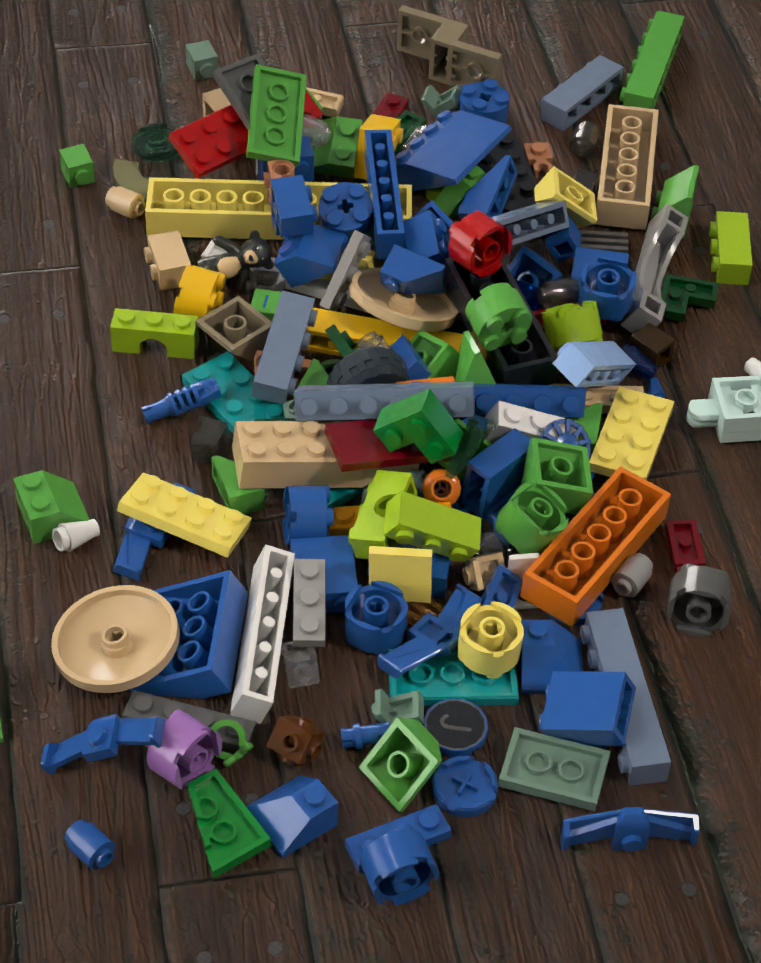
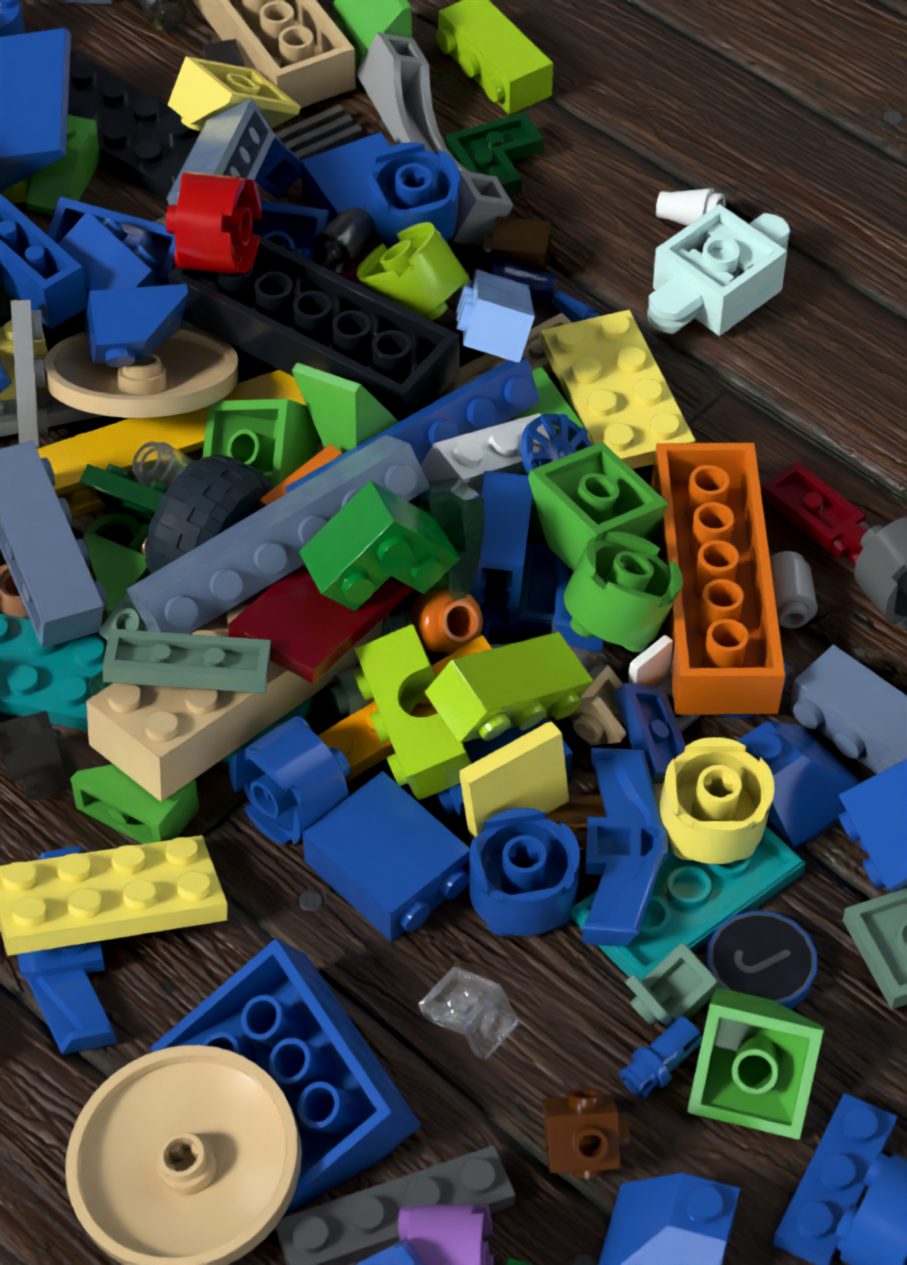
camera: 35 degrees left, 5 degrees up
(244, 747) = (519, 1195): bright green piece -> none
(262, 634) = (394, 1006): white brick -> none
(290, 427) = (187, 660): none -> sand green plate
(309, 603) = (422, 912): light grey plate -> none
(415, 365) = (205, 442): blue piece -> none
(464, 786) = (859, 1040): blue tile -> none
(491, 191) = (112, 154): blue slope -> none
(499, 316) = (344, 316): bright green brick -> none
(538, 157) = (119, 57): nougat plate -> none

